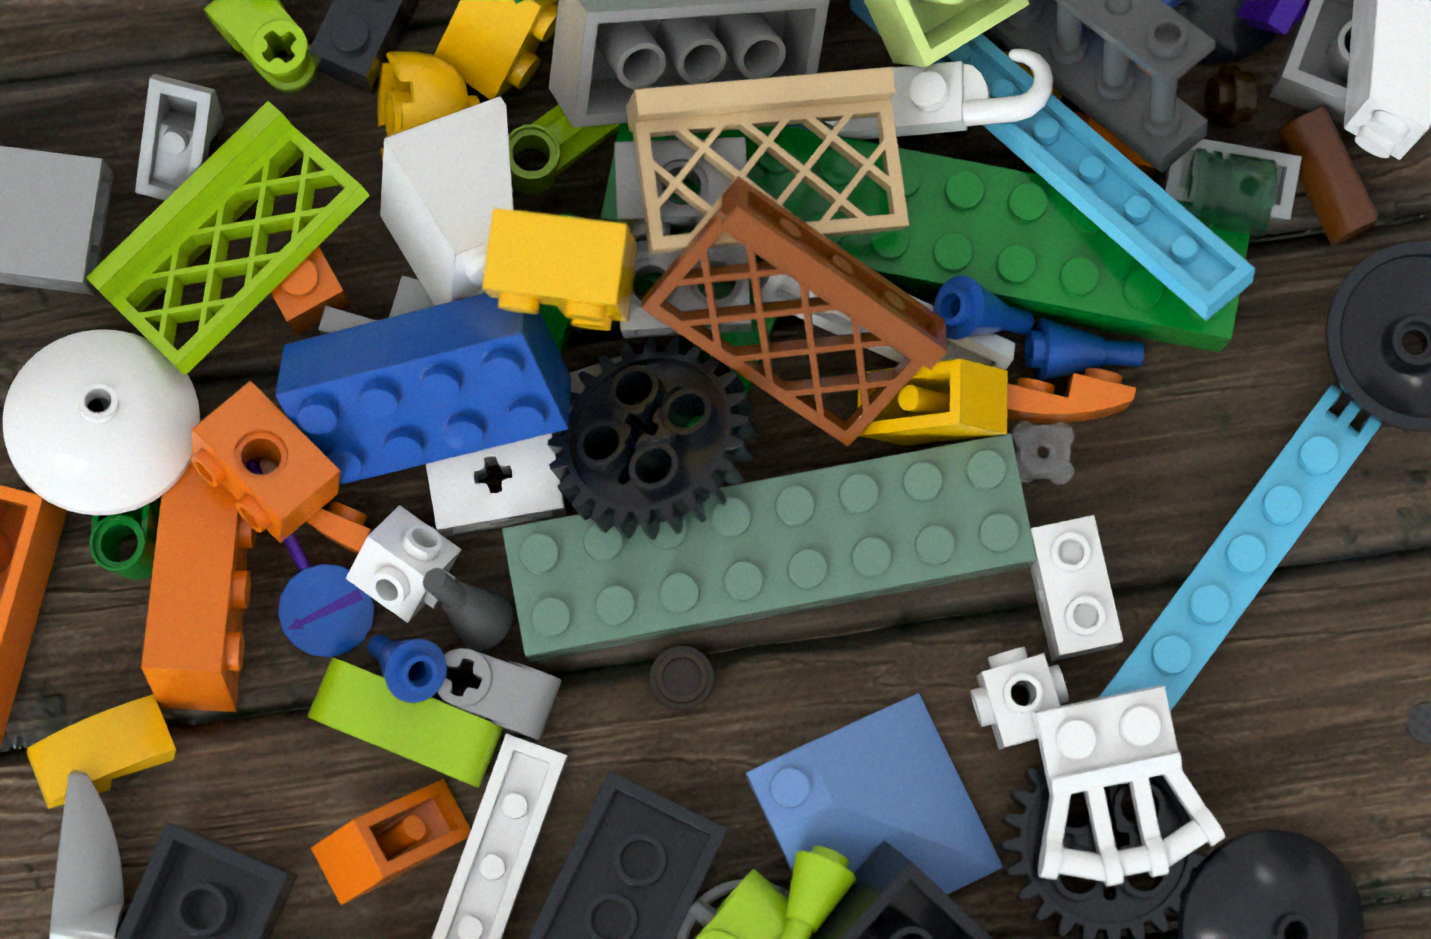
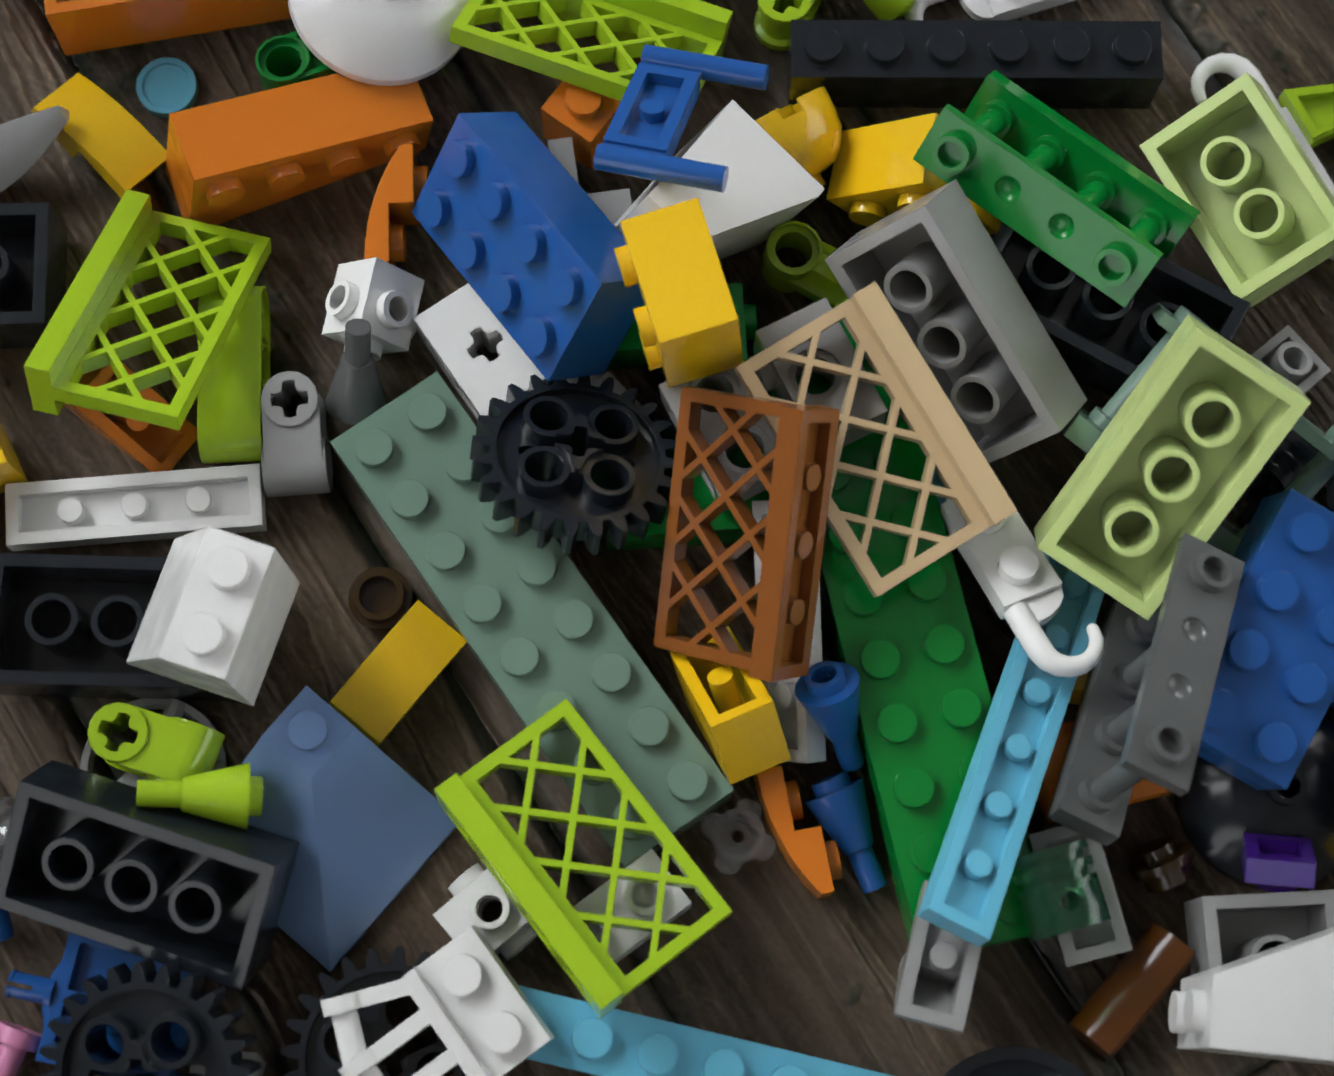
camera: 65 degrees right, 5 degrees down
(76, 671) = (167, 87): none -> medium azure piece
(253, 428) = (420, 109): orange brick -> none
(299, 821) = (96, 305): none -> lime fence
(319, 605) = (309, 251): blue piece -> none
(365, 214) = (657, 111): none -> blue plate
(410, 667) = (274, 347): blue cone -> none
(653, 826) = (216, 614): none -> white slope
(761, 689) = (397, 673): none -> yellow slope
(1030, 644) = (533, 890): none -> lime fence
(1254, 331) = (935, 976): none -> light grey slope

